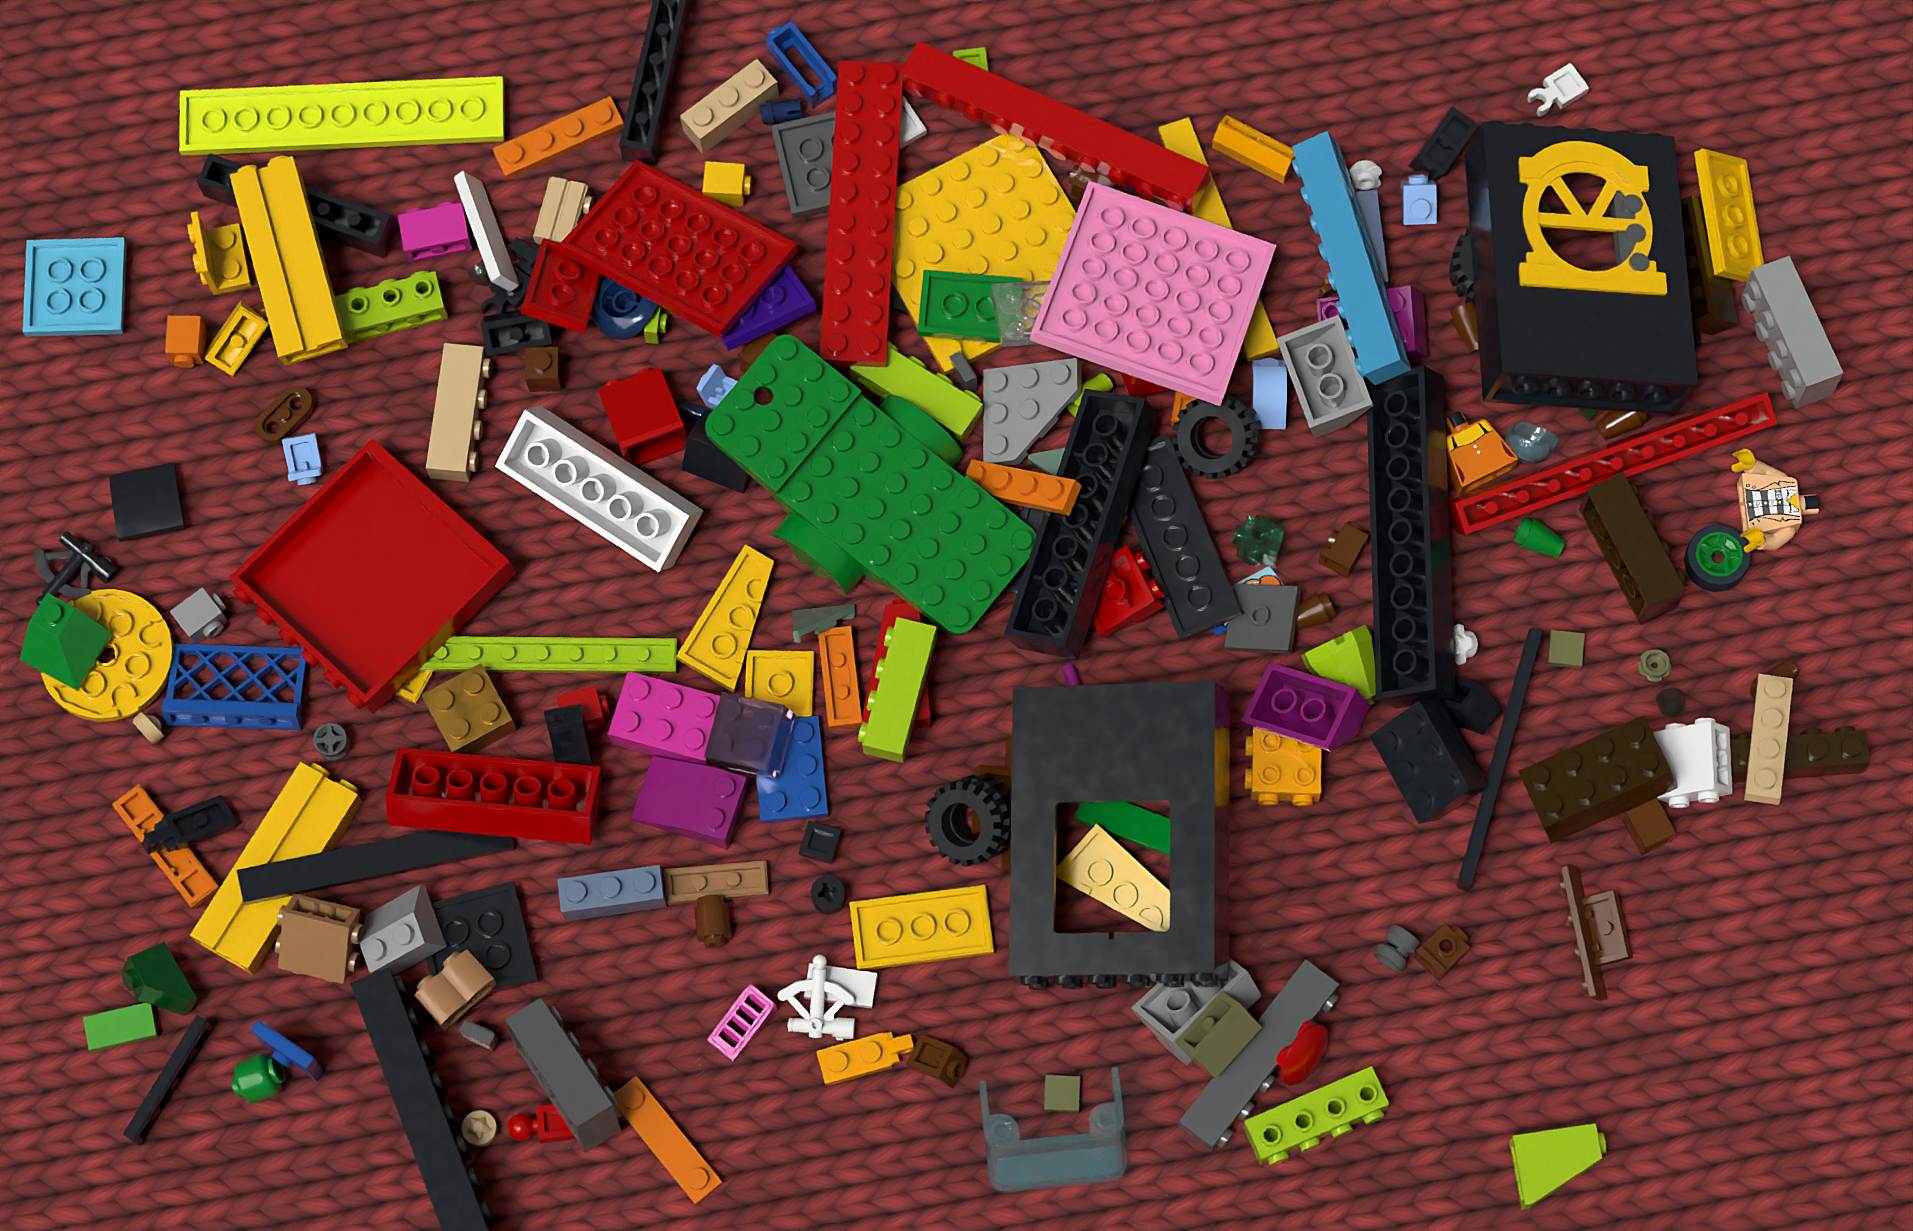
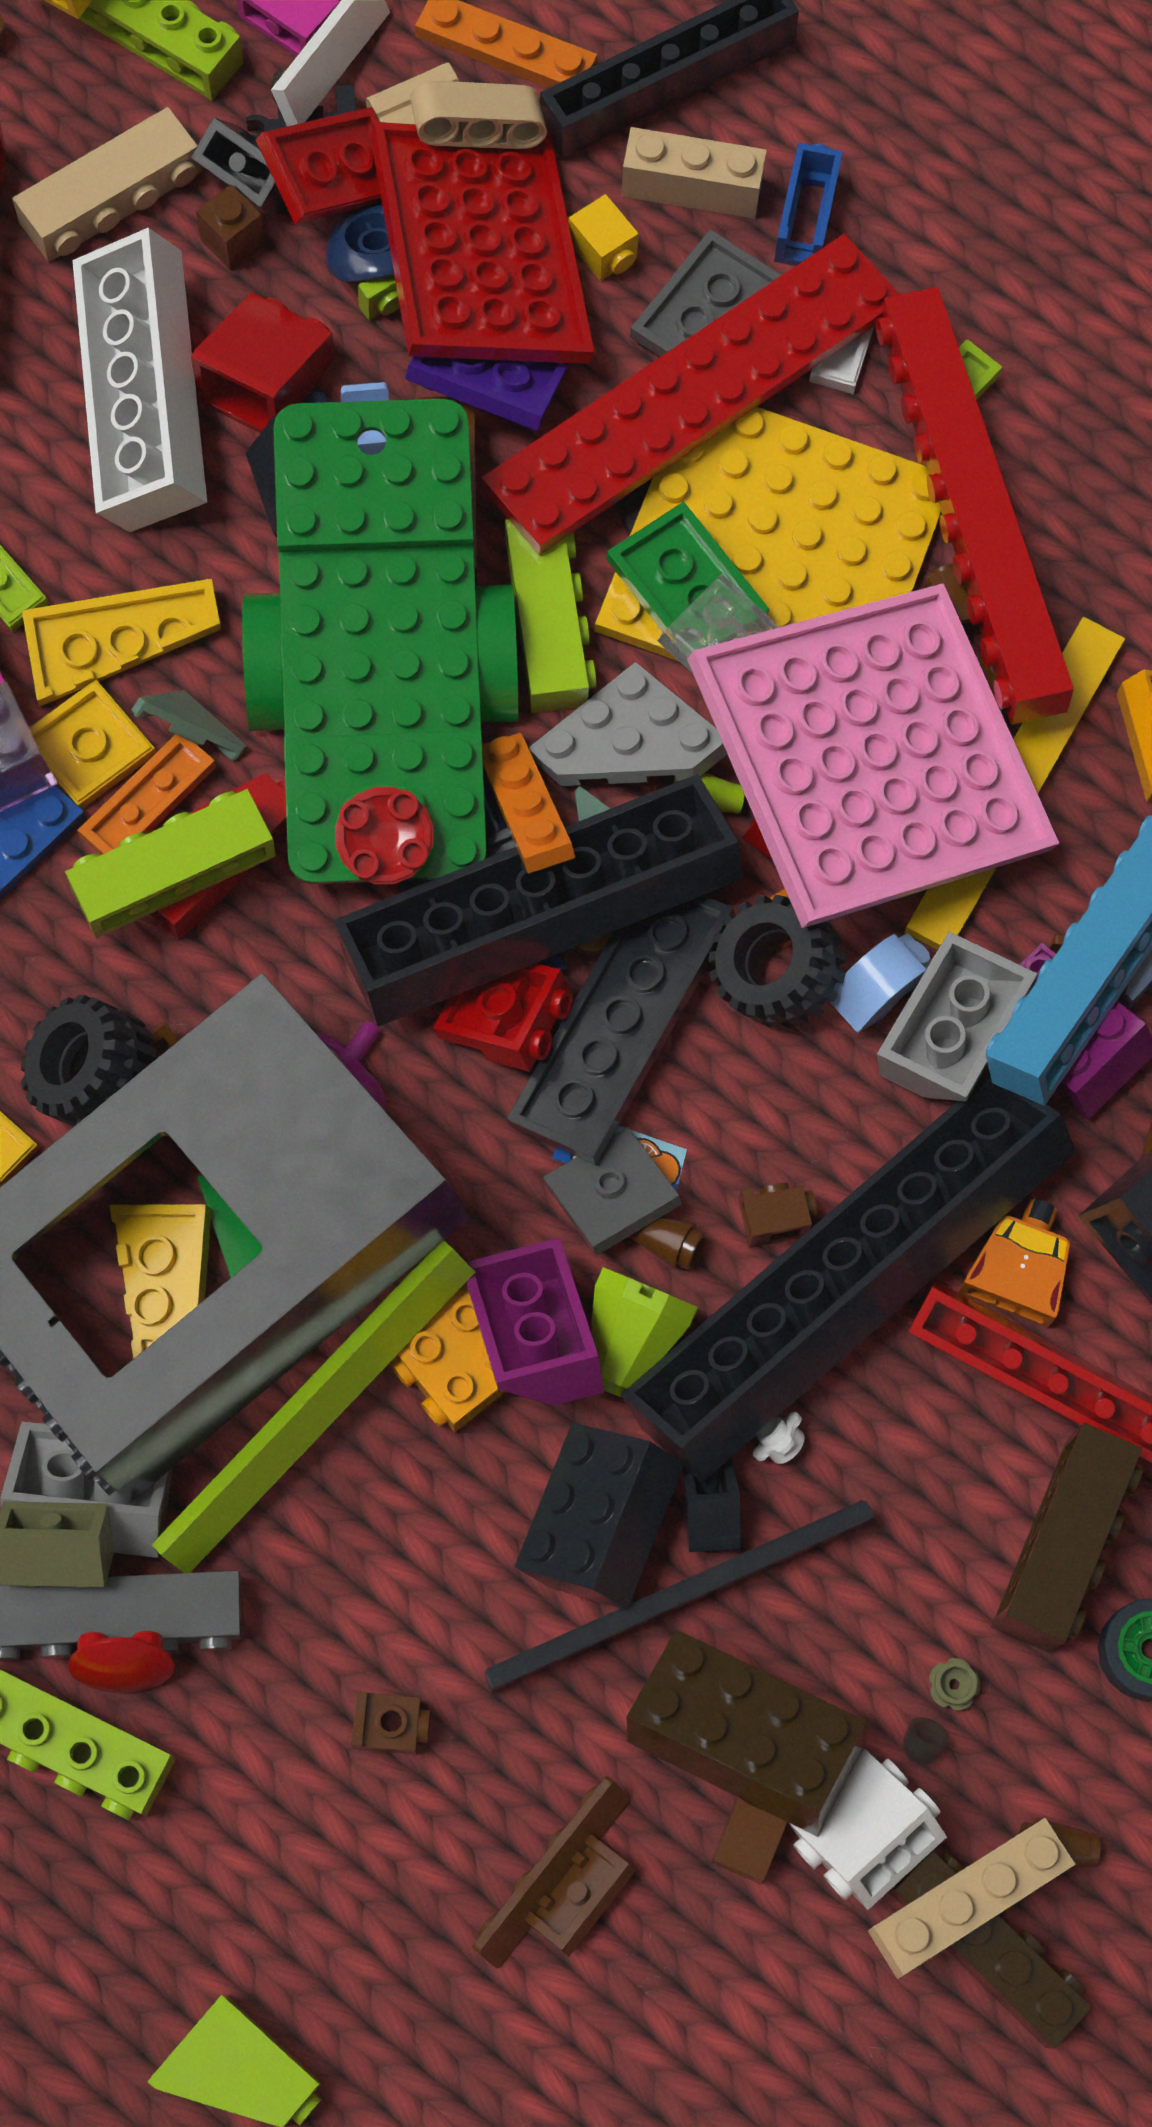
camera: 40 degrees right, 0 degrees up
(602, 187) = (478, 115): none -> tan beam
(780, 111) = (736, 228): dark blue pin -> none
(964, 372) = (607, 652): dark grey tile -> none
(983, 569) = (384, 835): none -> red dish
(1255, 853) = (313, 1408): none -> lime tile
(1259, 541) = (699, 1111): clear green brick -> none
(1396, 948) = (357, 1662): dark grey wheel -> none
(1531, 442) = (1091, 1317): clear light blue hair -> none
(1538, 538) = (986, 1421): green cone -> none
(1565, 649) = (882, 1564): olive tile -> none

